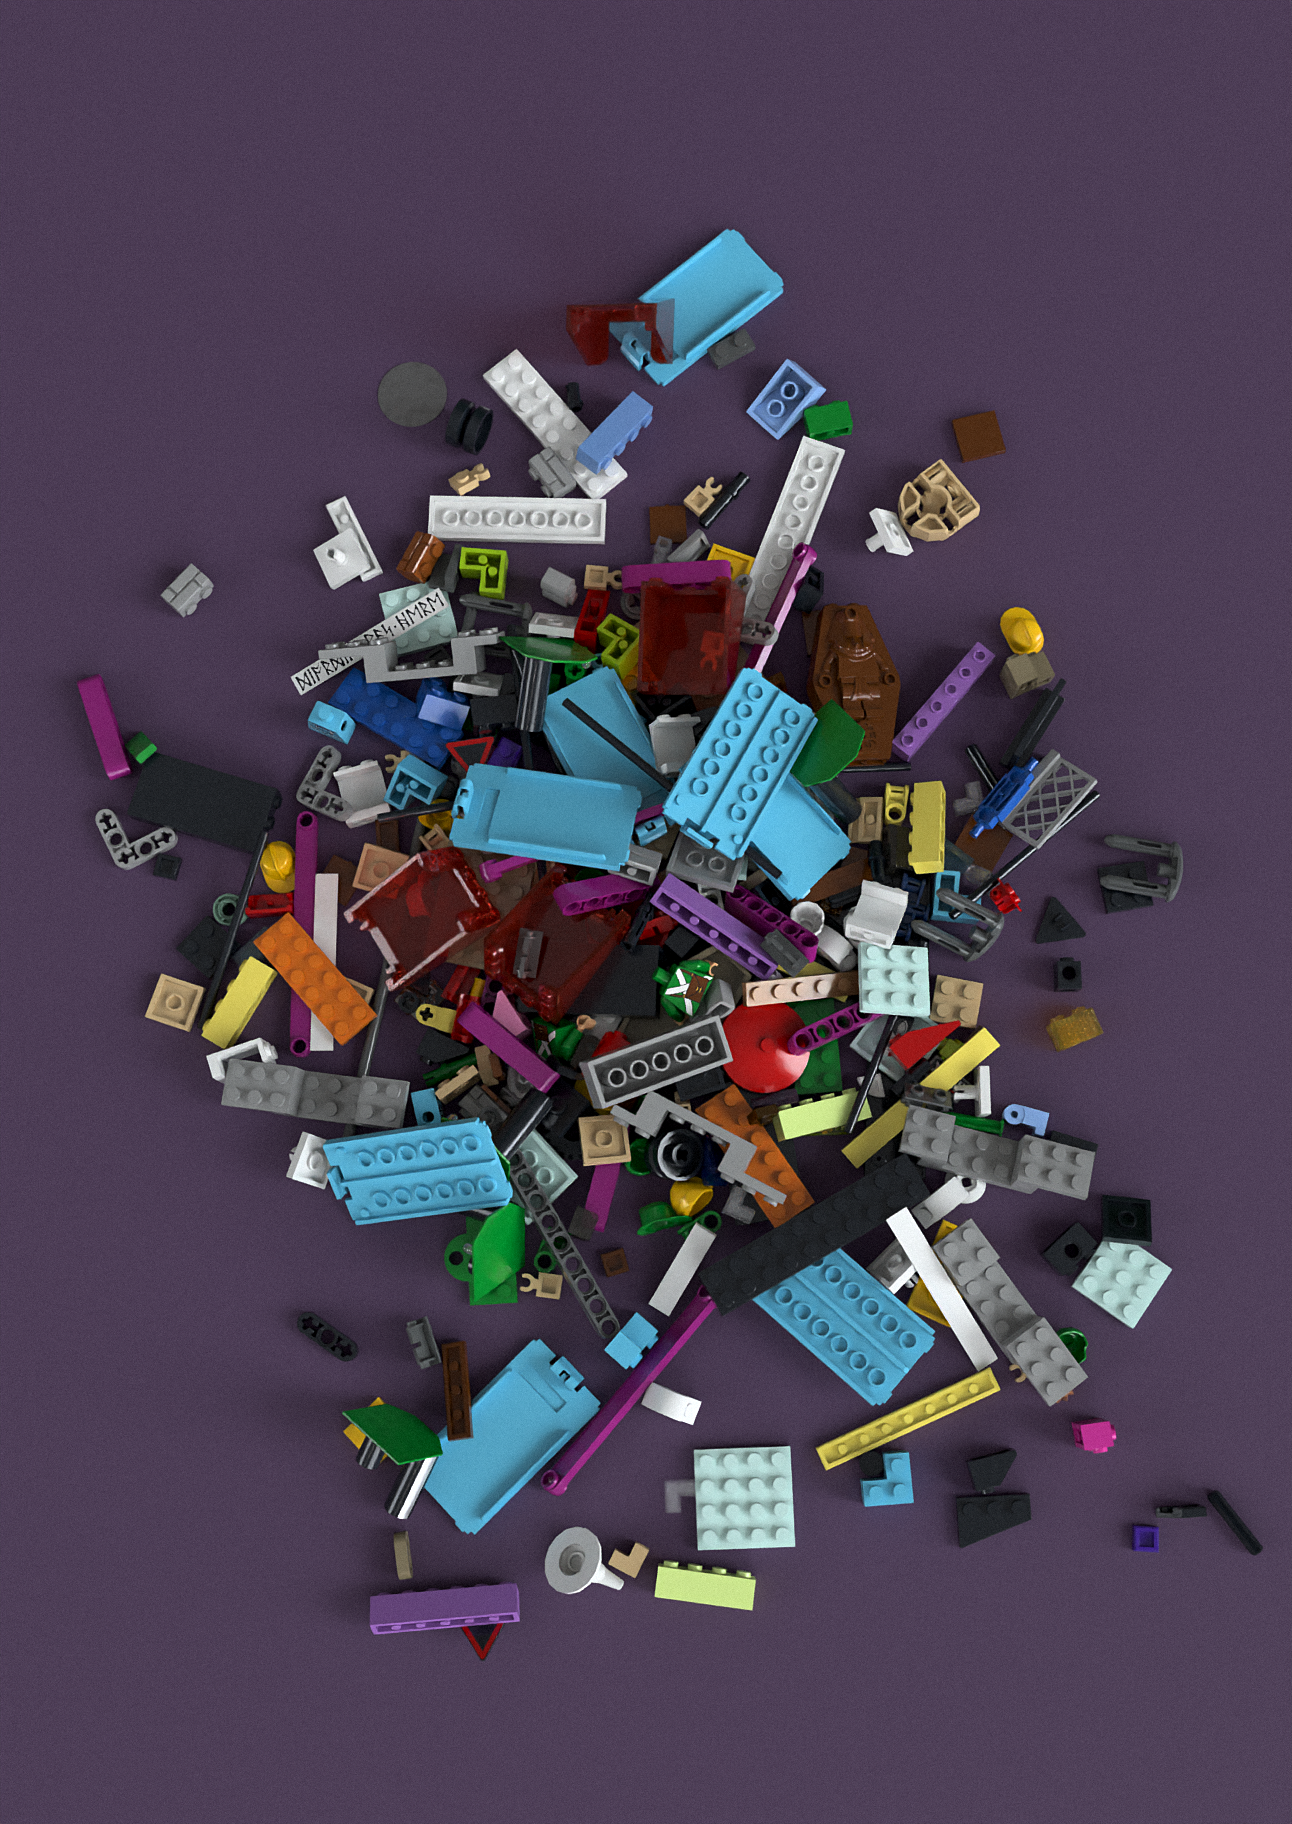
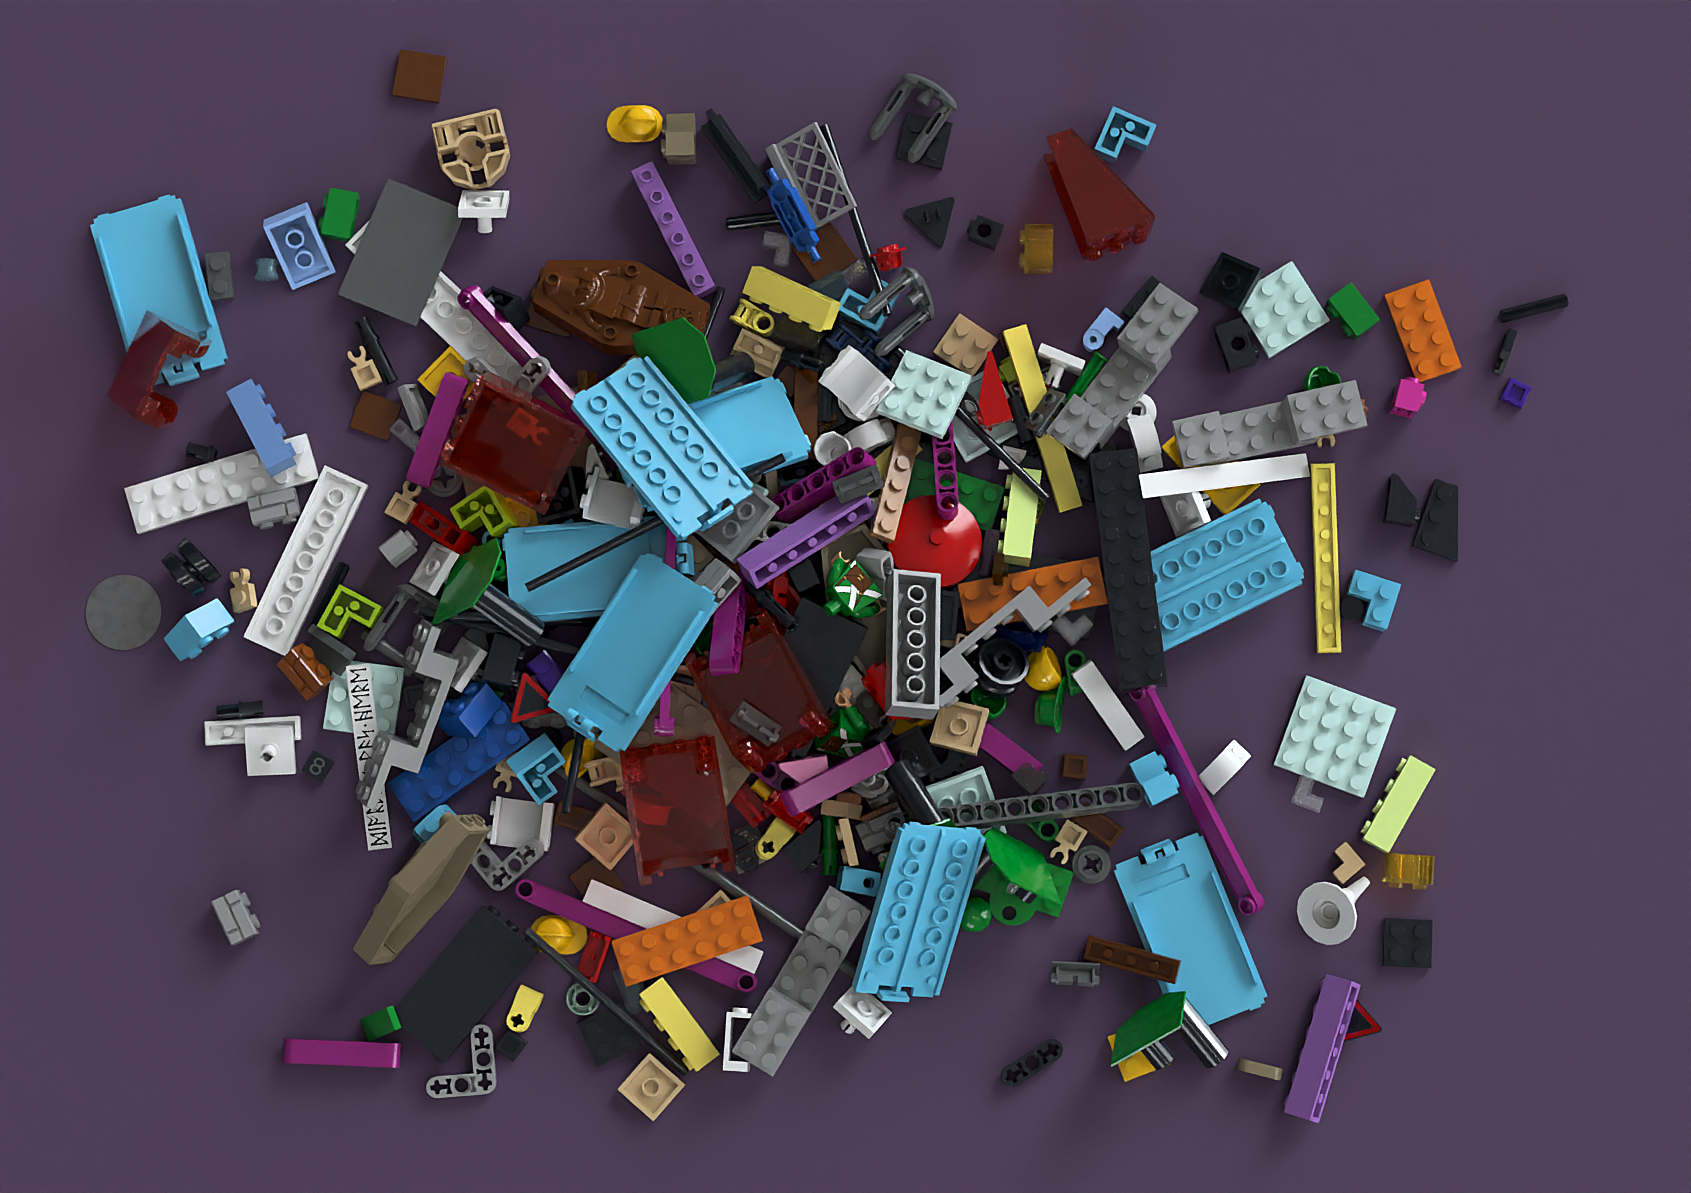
camera: 70 degrees left, 5 degrees up
(204, 863) = (525, 1004): none -> light yellow piece
(266, 727) = (421, 887): none -> dark tan container
(345, 604) = (317, 766): none -> black tile
(367, 521) = (241, 710): none -> black axle
(422, 454) = (198, 630): none -> medium azure brick
(442, 1227) = (976, 915): none -> green hair
(513, 551) = (337, 577): none -> black axle
(519, 1317) = (1103, 865): none -> dark grey gear
(568, 1310) = (1100, 827): none -> reddish brown tile
(578, 1650) = (1407, 943): none -> black plate
(647, 1623) = (1408, 869): none -> clear yellow brick
(753, 382) = (266, 269): none -> clear light blue wheel
(817, 483) = (401, 252): none -> dark grey piece
(1144, 1061) = (1094, 199): none -> clear red windscreen
(1151, 1346) = (1352, 311): none -> green brick
(1163, 1422) = (1422, 331): none -> orange plate
(1220, 1057) = (1123, 128): none -> medium azure brick

